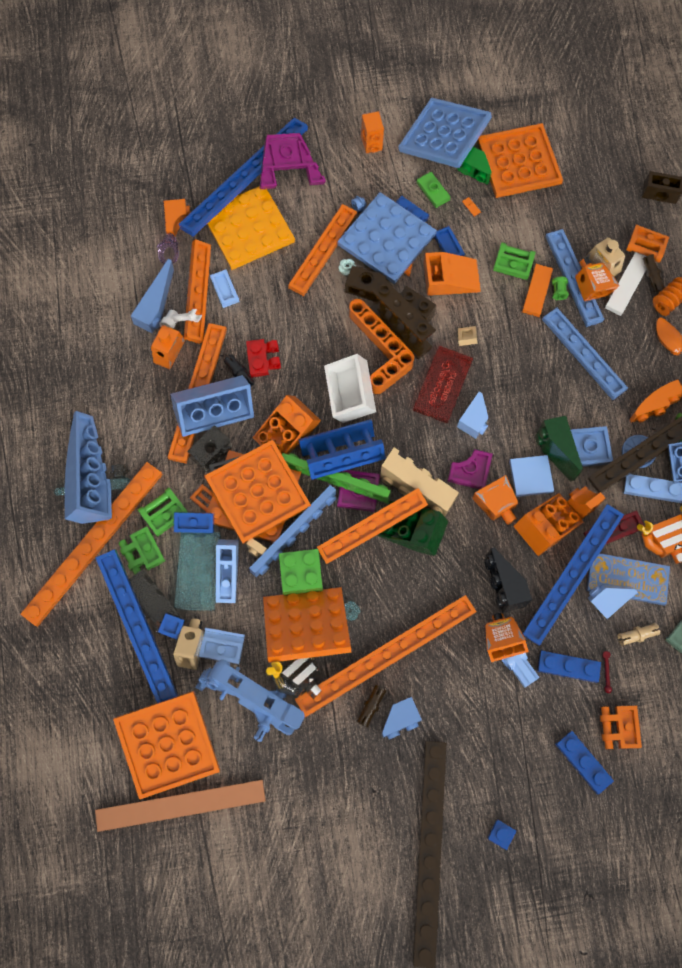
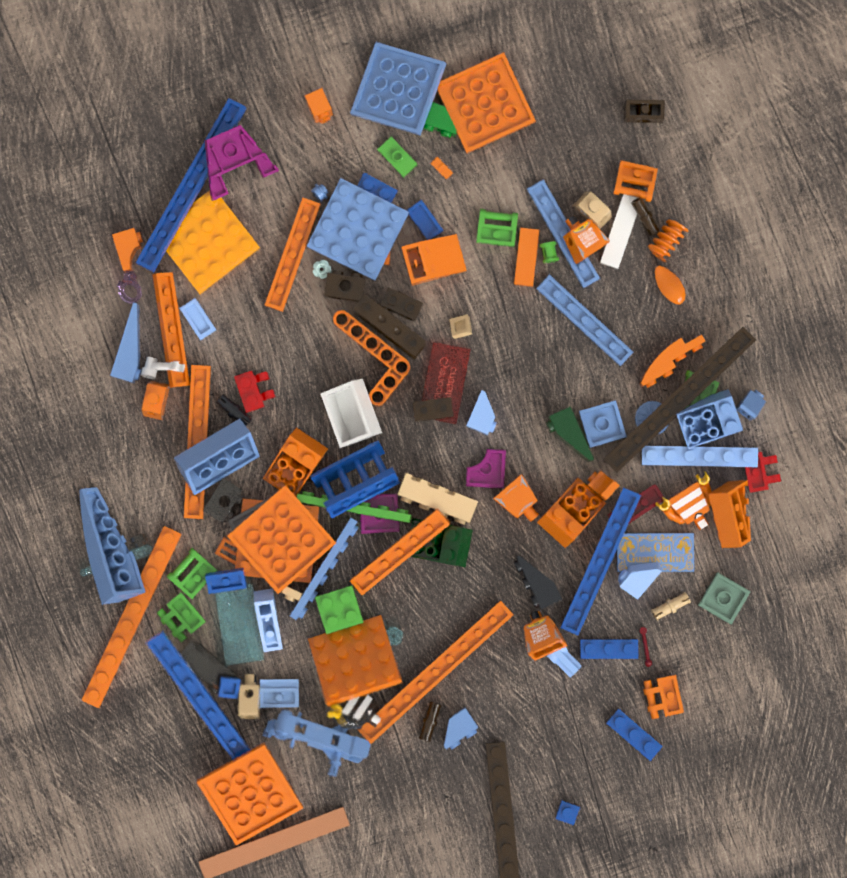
camera: 10 degrees left, 15 degrees up
(429, 400) = (433, 409): none -> dark brown brick
(531, 476) = (548, 465): light blue tile -> none

